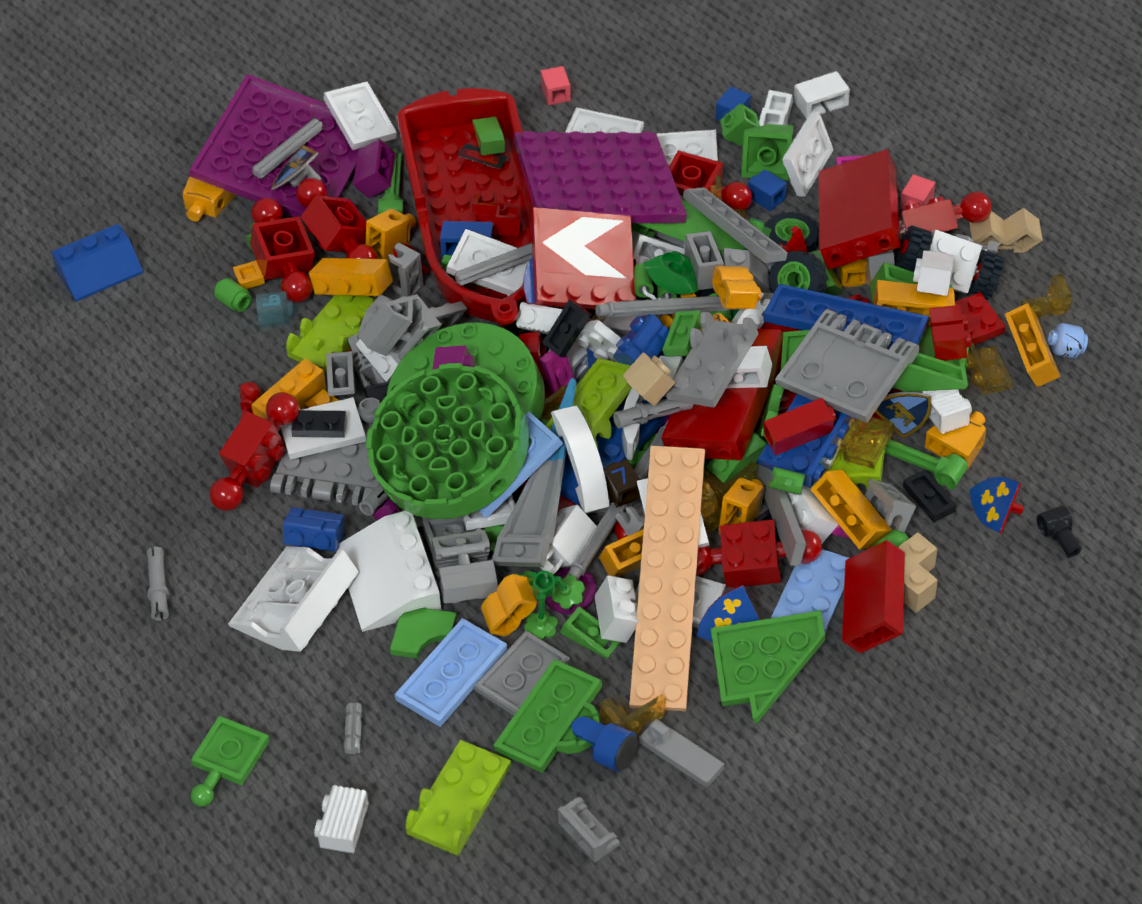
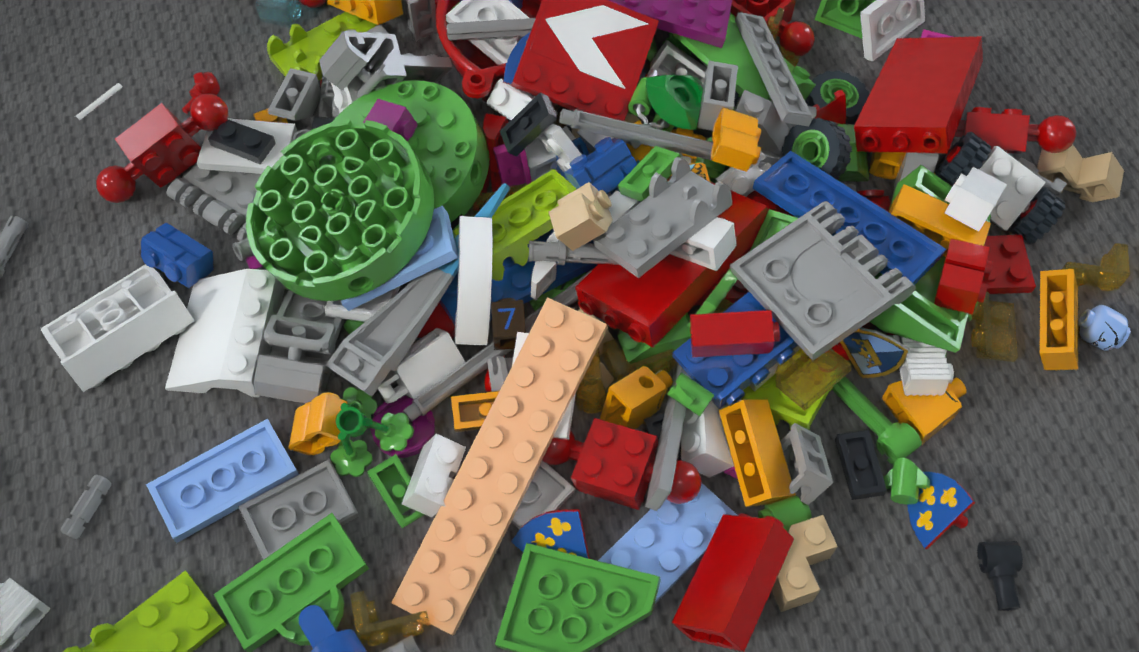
camera: 20 degrees right, 10 degrees up
(156, 439) = (100, 100): none -> white piece
(302, 382) = (247, 94): light orange brick -> none
(419, 629) = (220, 413): bright green tile -> none
(767, 190) = (834, 41): blue brick -> none
(917, 191) = (997, 94): coral brick -> none
(967, 494) = (905, 481): none -> bright green piece

